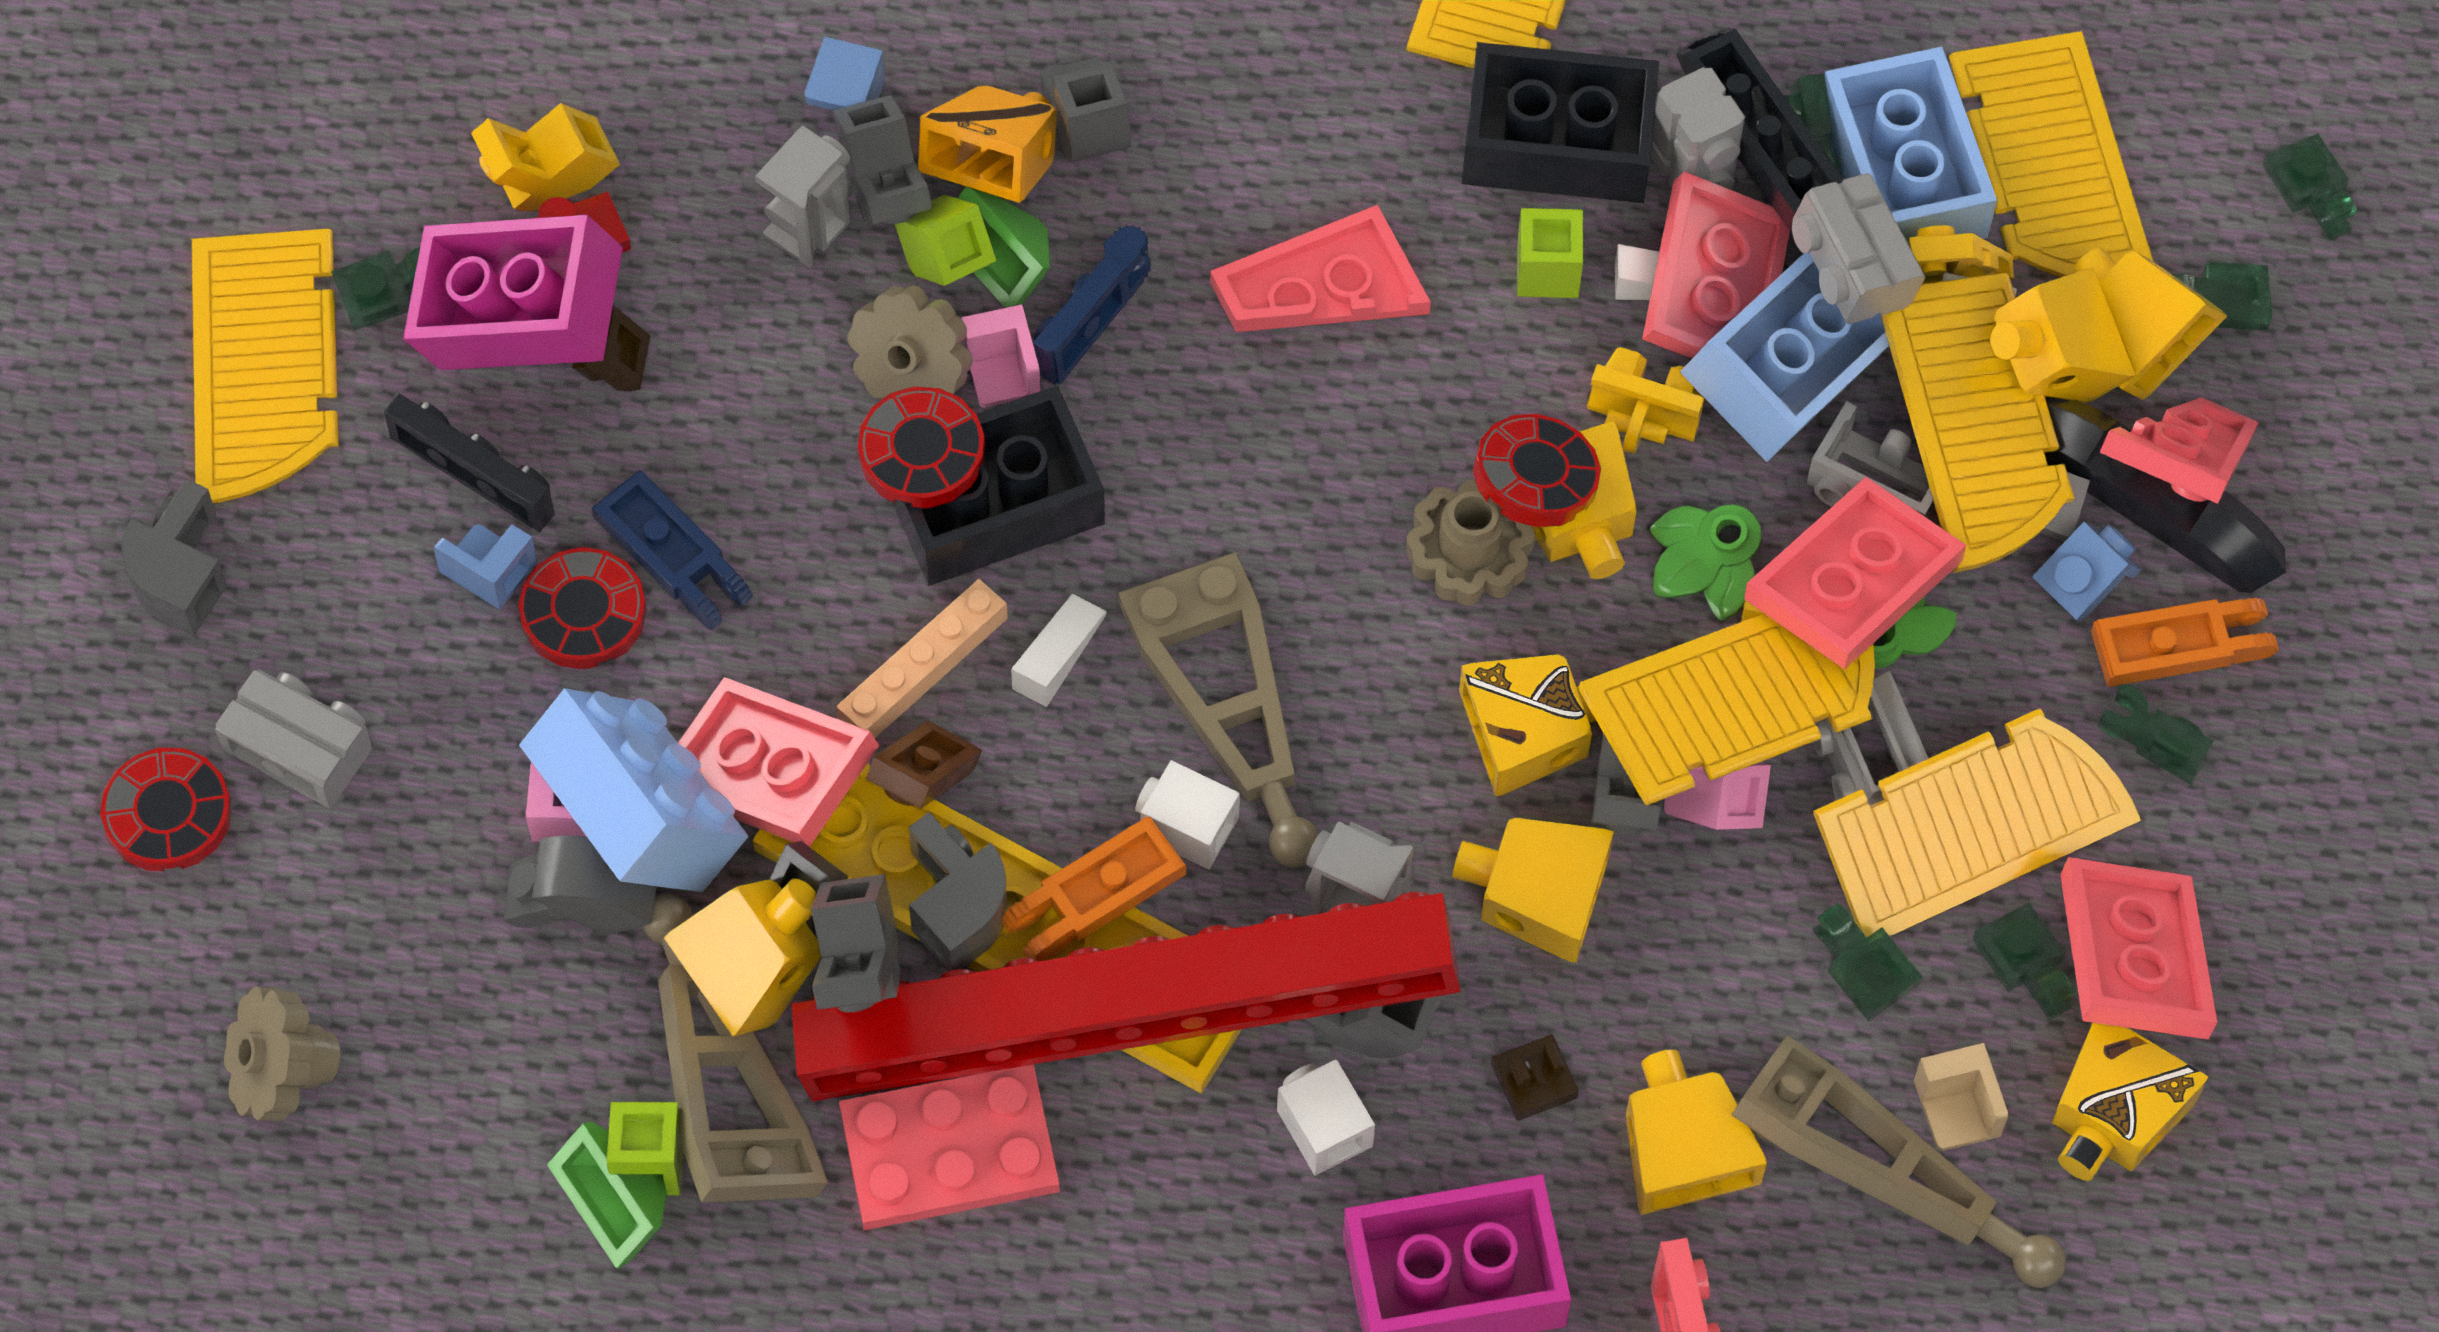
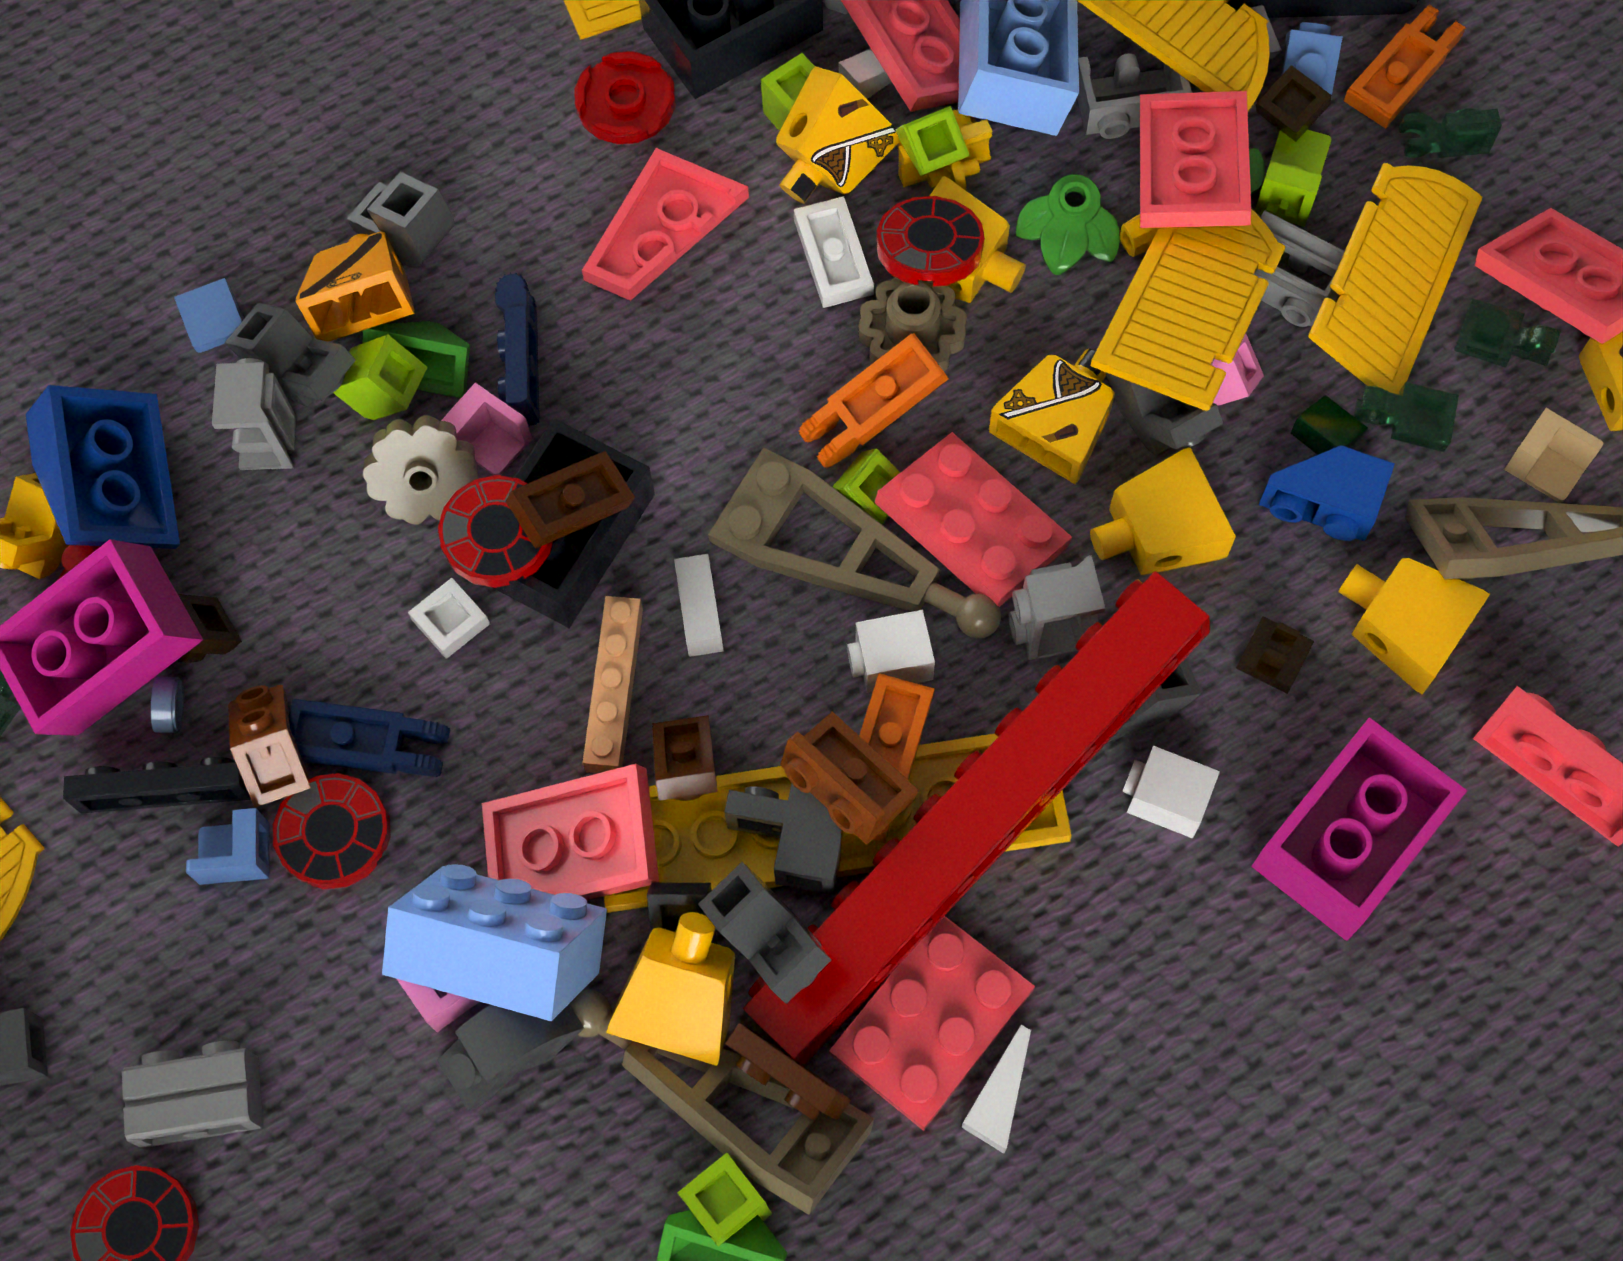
camera: 35 degrees left, 5 degrees up
(532, 396) = (167, 704): none -> sand blue tile
(581, 490) = (265, 746): none -> dark orange bracket
(641, 149) = (103, 466): none -> blue slope
(774, 1061) = (807, 1090): none -> reddish brown plate
(830, 499) = (449, 618): none -> white plate
(943, 1250) = (995, 1106): none -> white piece
(1002, 464) = (570, 499): none -> reddish brown plate
(1036, 875) = (847, 777): none -> dark orange bracket
(1306, 661) = (864, 479): none -> lime slope
(1367, 749) = (972, 519): none -> coral plate
(1369, 580) = (874, 399): none -> orange hinge
(1389, 152) = (626, 114): none -> red tile
(1458, 419) = (833, 252): none -> white plate
(1542, 312) = (832, 136): none -> yellow torso
(1629, 381) = (933, 141): none -> lime slope
(1721, 971) = (1332, 490): none -> blue slope
(1777, 919) = (1327, 427): none -> dark green slope
(1967, 664) = (1294, 176): none -> lime bracket
(2023, 595) = (1293, 103): none -> dark brown tile

